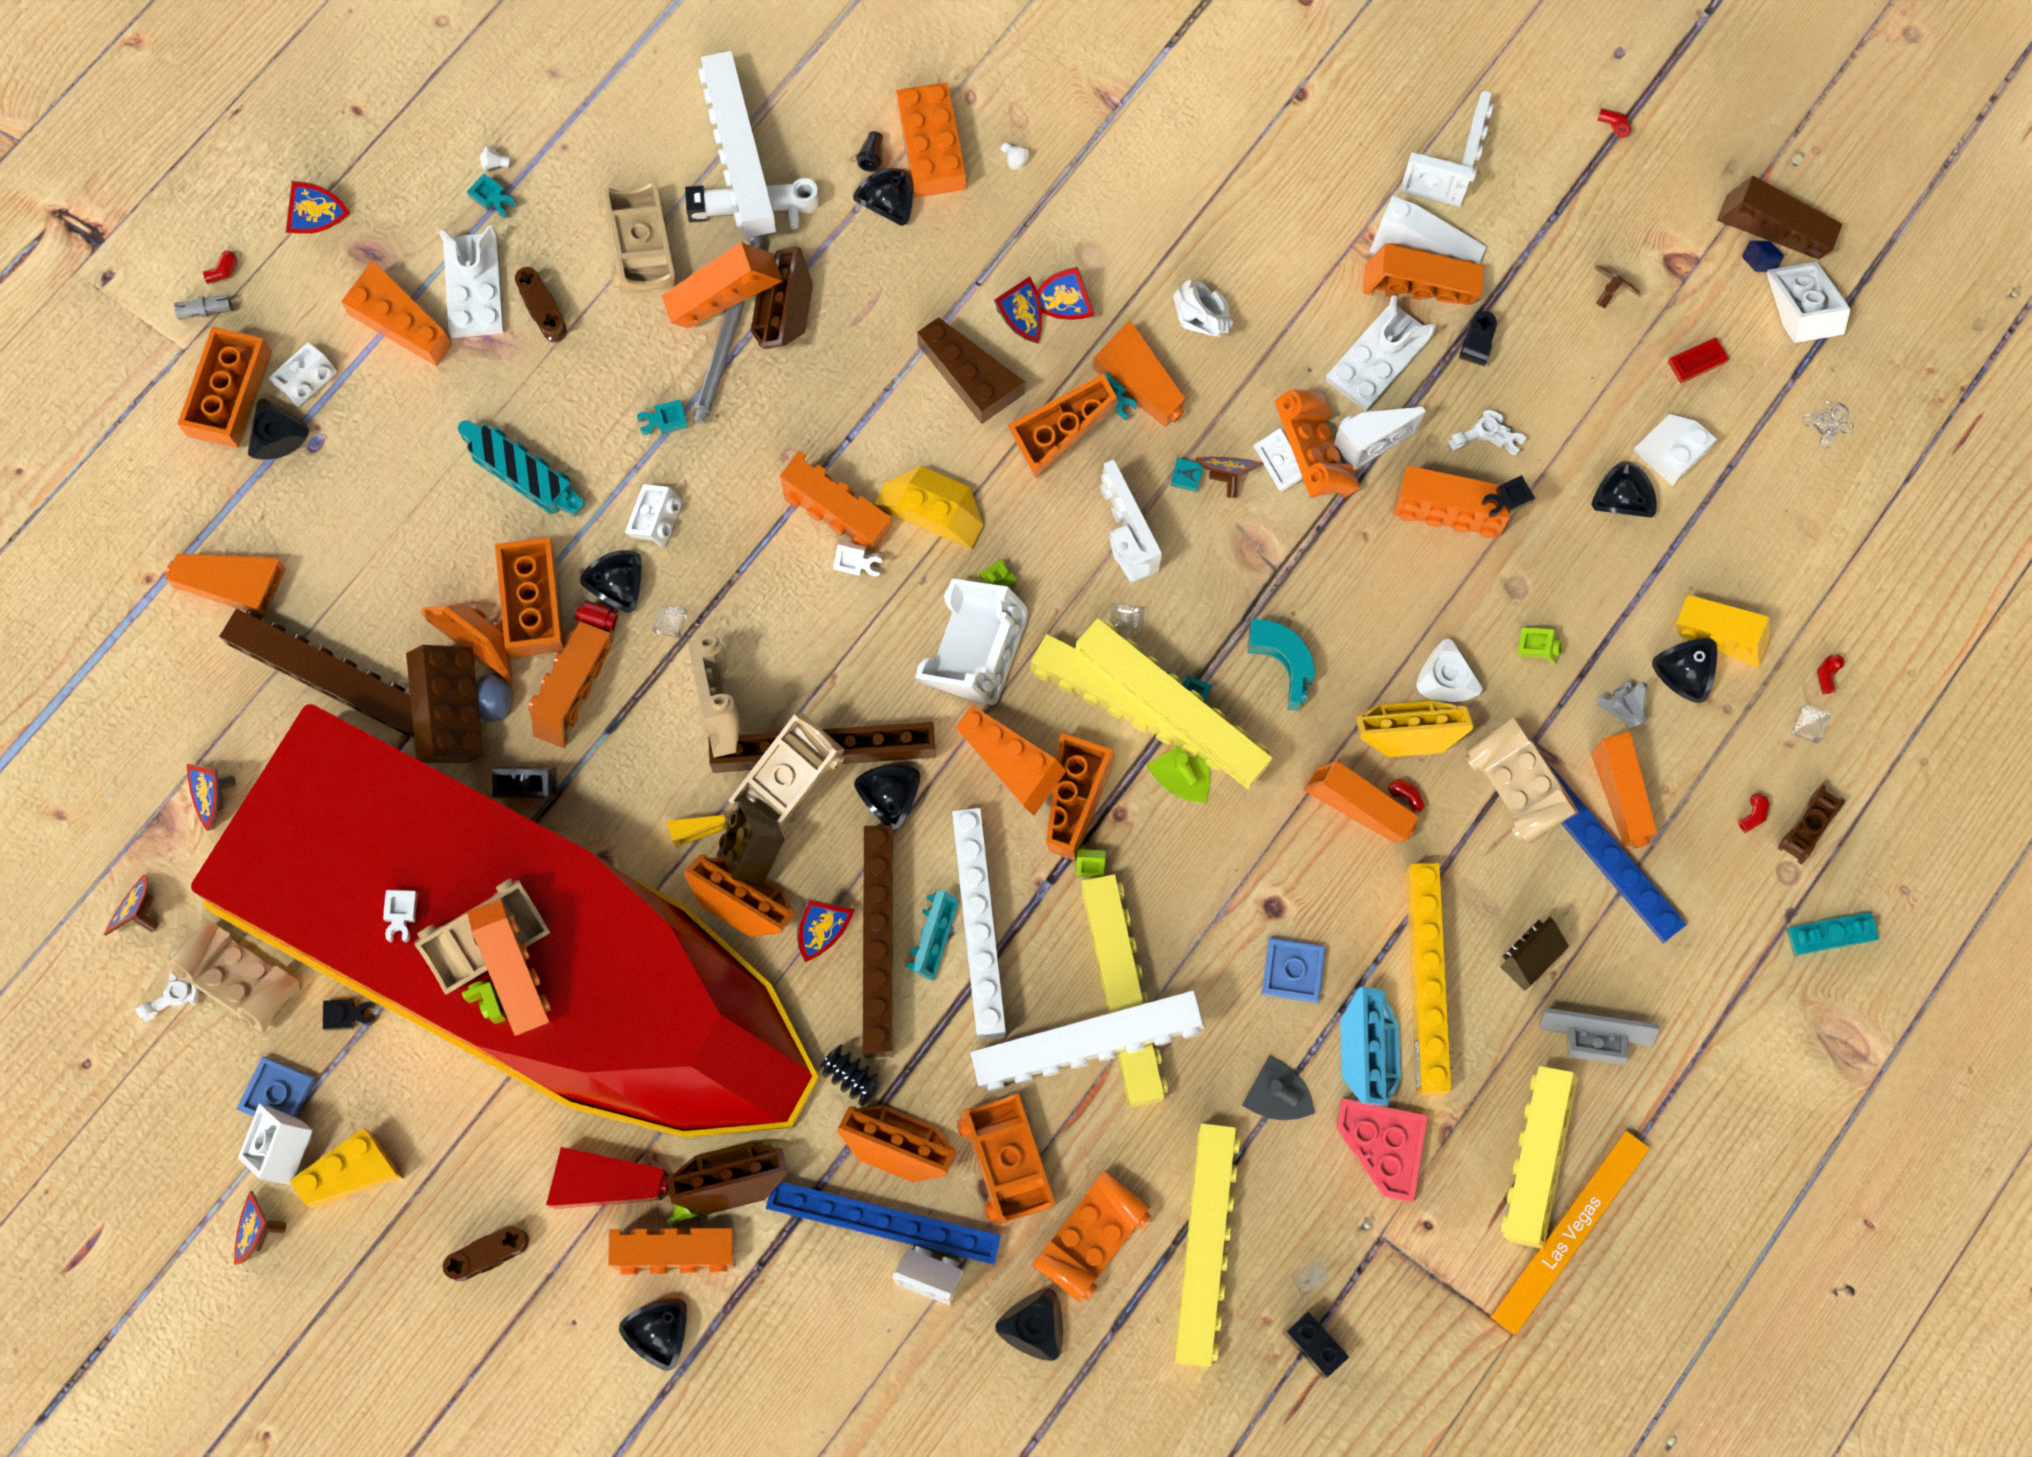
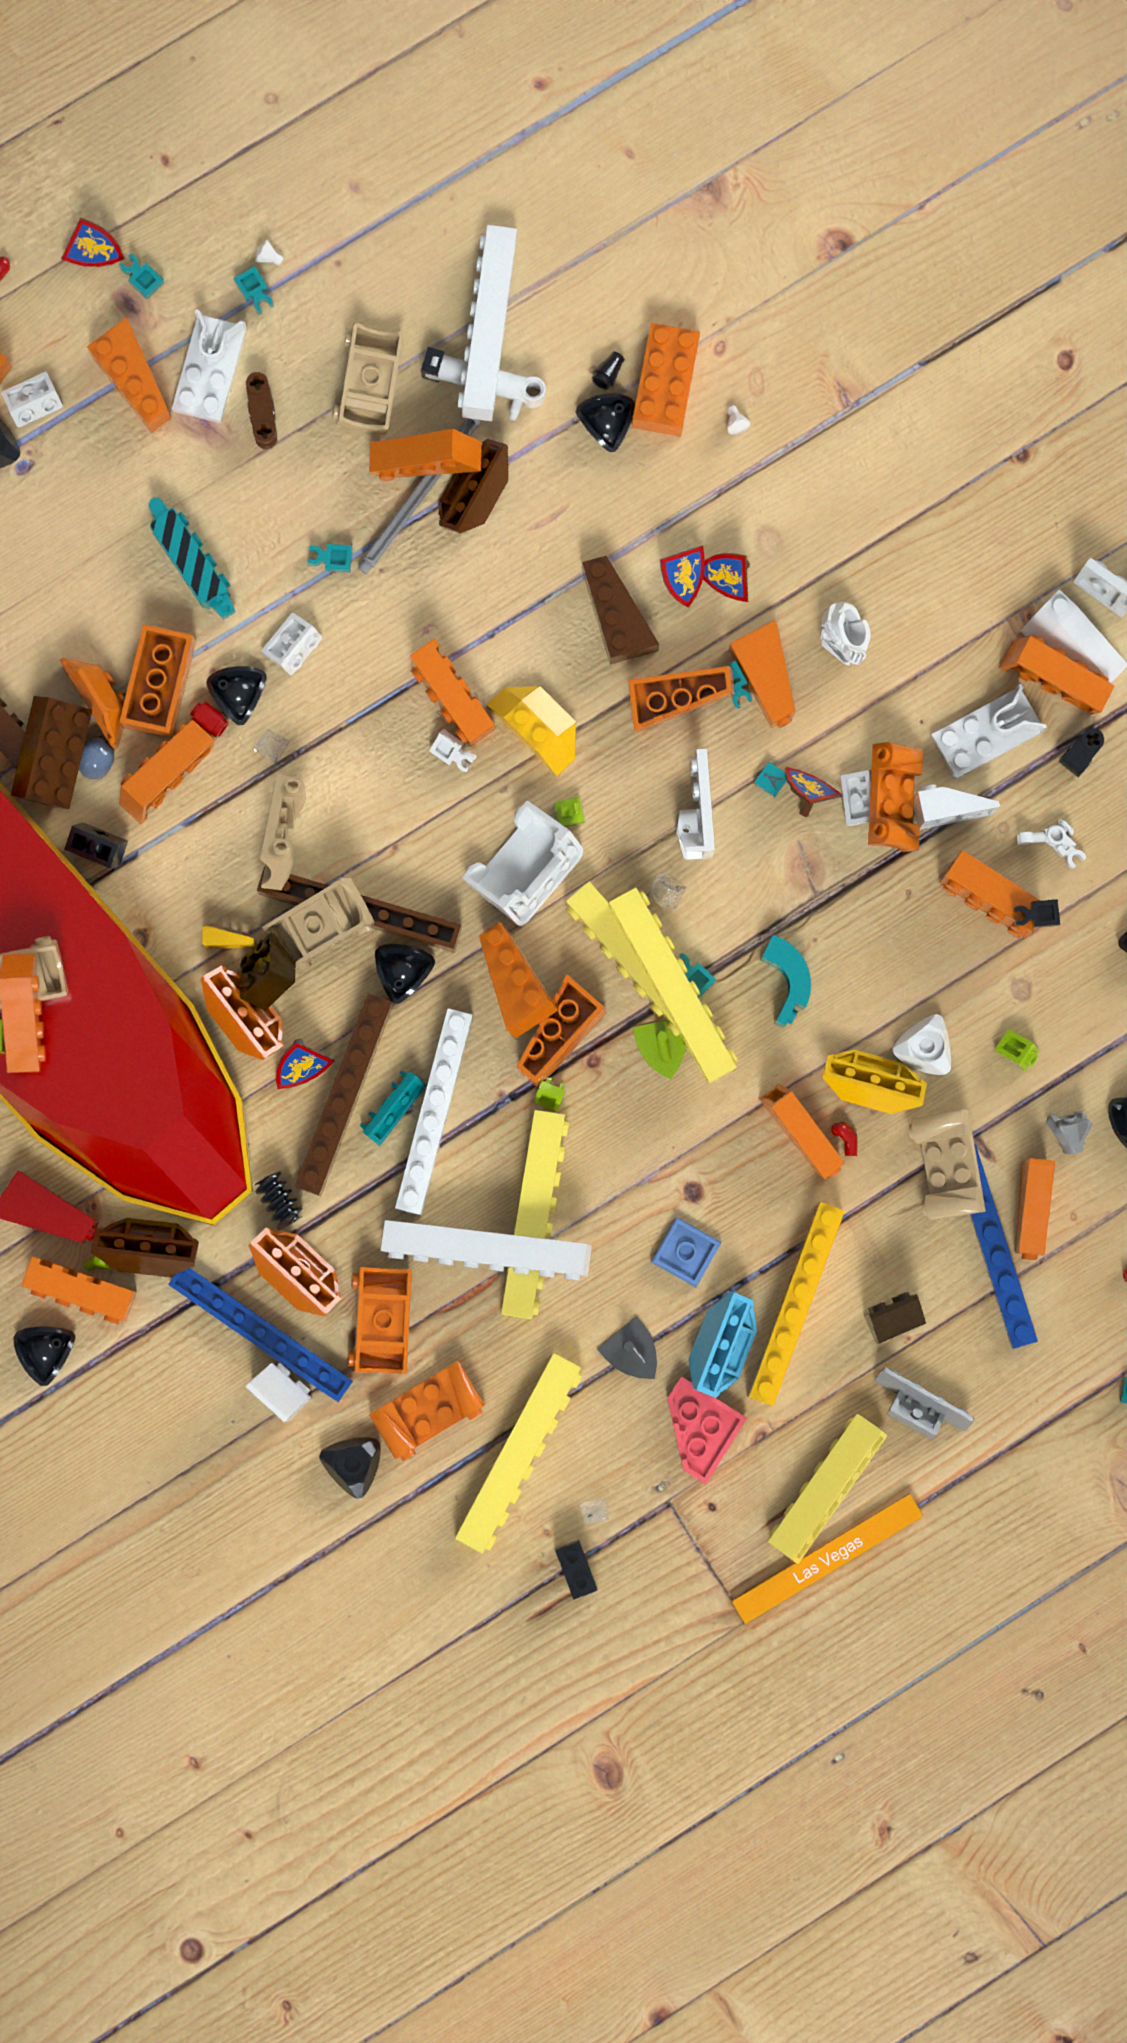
camera: 20 degrees right, 10 degrees up
(375, 224) = (143, 278): none -> teal plate

